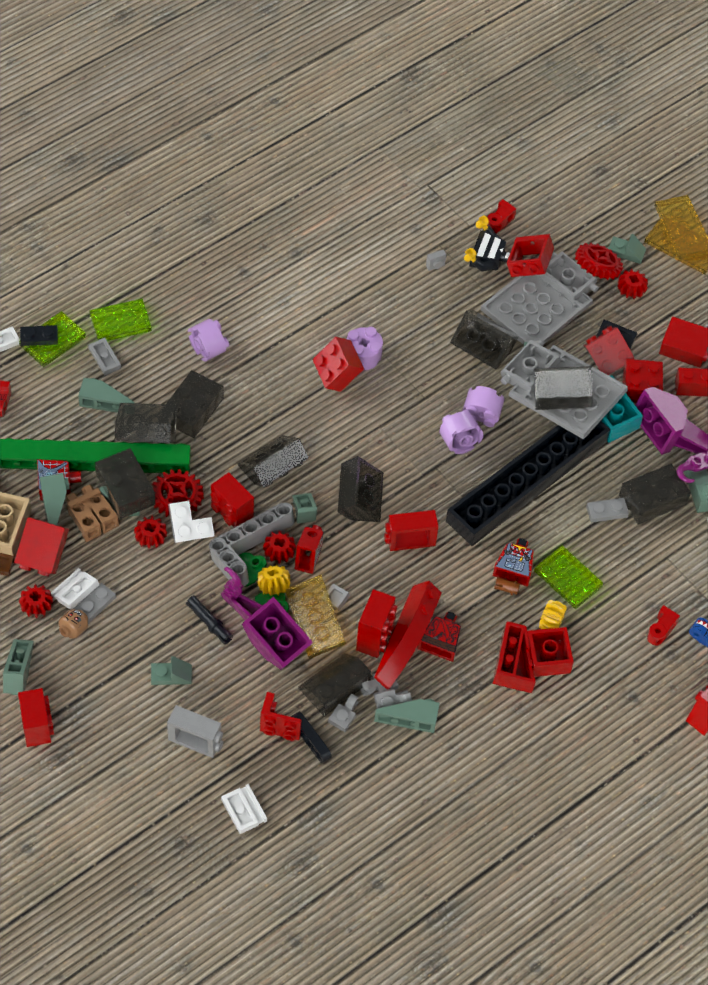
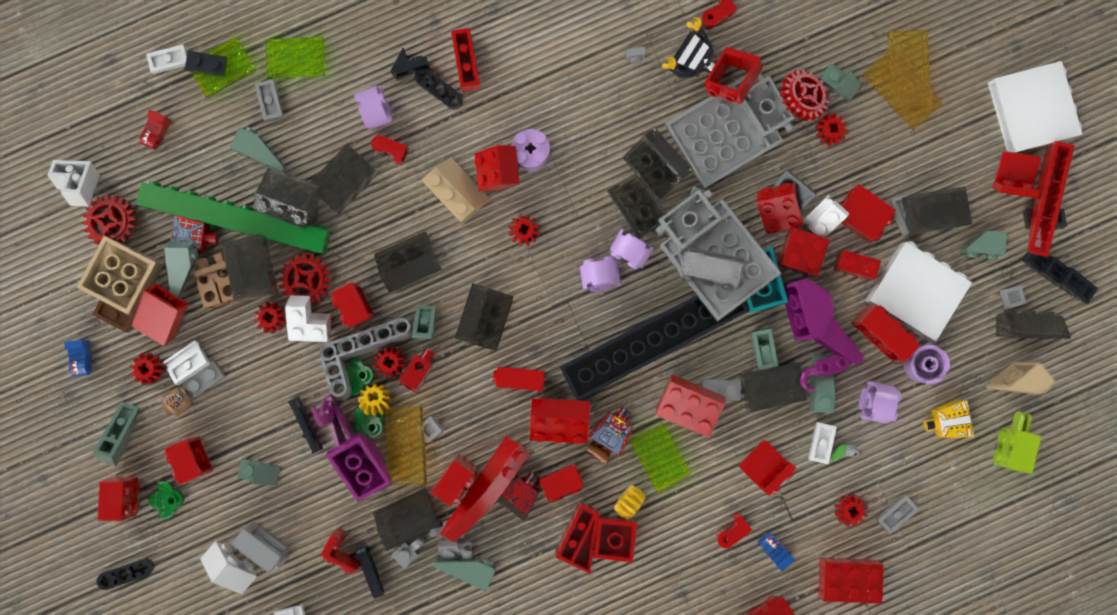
camera: 15 degrees right, 30 degrees up
(36, 800) = (117, 573): none -> black beam
(78, 718) = (164, 500): none -> green plate
(100, 667) = (188, 460): none -> red brick
(164, 758) = (227, 569): none -> white brick
(227, 307) = (405, 67): none -> black slope
(230, 372) = (387, 146): none -> red leg
(277, 320) = (430, 76): none -> black beam
(283, 289) = (465, 60): none -> red brick
(300, 396) = (455, 190): none -> tan slope
(377, 413) = (517, 228): none -> red gear
(461, 557) = (559, 420): none -> red brick
(477, 367) = (637, 205): none -> clear smoke slope
(480, 617) = (561, 482): none -> red brick
(582, 522) = (690, 405): none -> brick
(633, 459) = (764, 348): none -> sand green slope
(652, 345) = (825, 217): none -> white plate
(674, 564) = (767, 468): none -> red bracket

